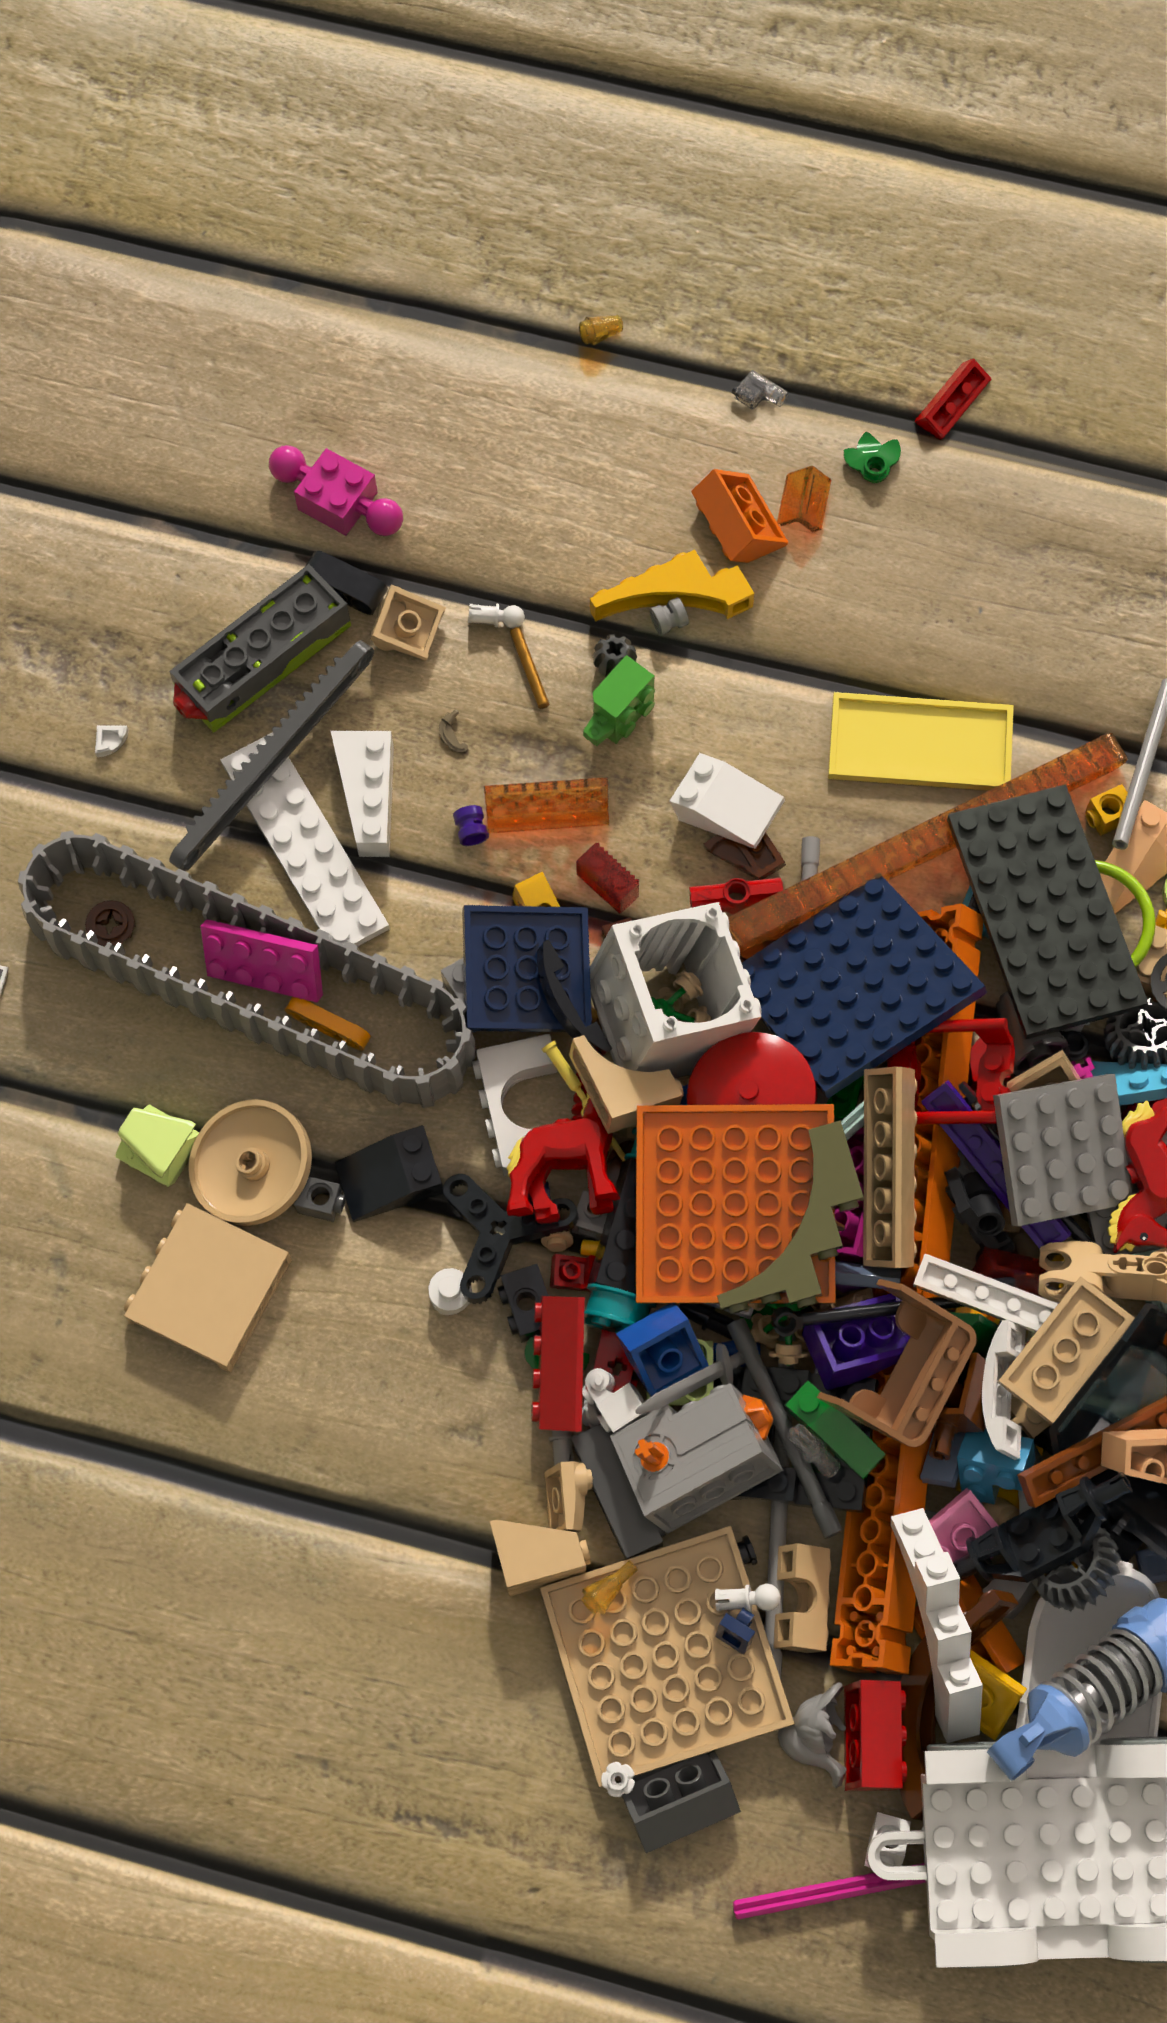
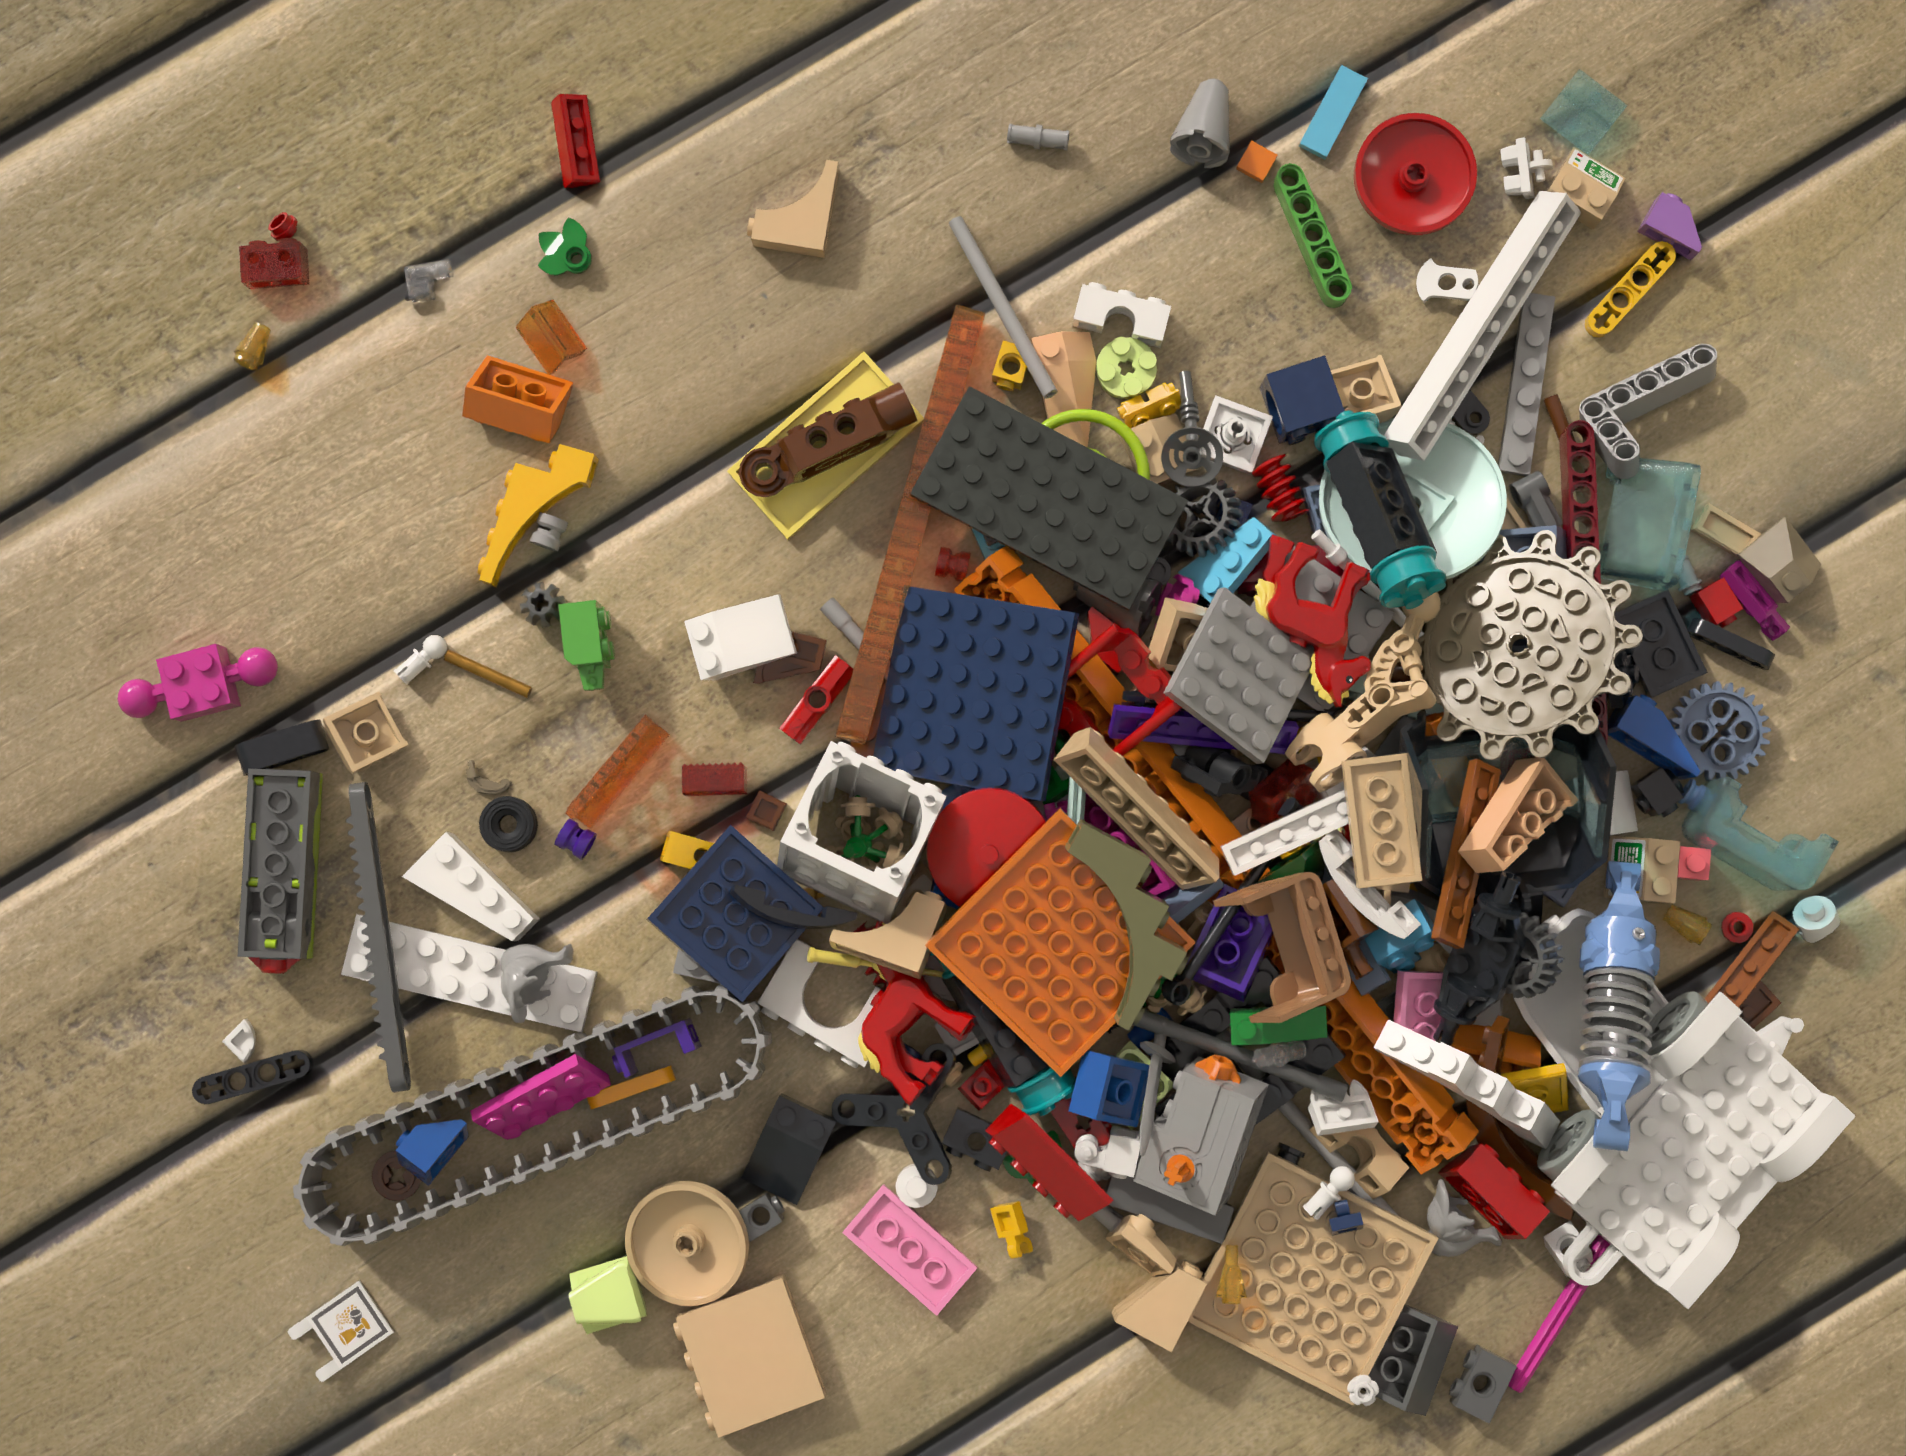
camera: 45 degrees left, 15 degrees up
(90, 768) = (252, 1075): none -> black beam
(154, 920) = (430, 1147): none -> blue slope
(341, 874) = (525, 973): none -> light grey piece
(380, 999) = (685, 1033): none -> dark purple panel
(397, 1332) = (910, 1249): none -> bright pink plate
(436, 756) = (490, 824): none -> black tyre
(485, 1389) = (1011, 1224): none -> yellow plate
(669, 292) = (274, 264): none -> clear red brick
(700, 276) = (283, 226): none -> red plate
(736, 1876) = (1481, 1402): none -> dark grey brick
(815, 1551) = (1349, 1115): none -> white plate
(926, 732) = (797, 460): none -> reddish brown brick
(927, 897) = (956, 564): none -> clear red wheel
(1056, 586) = (802, 225): none -> tan arch

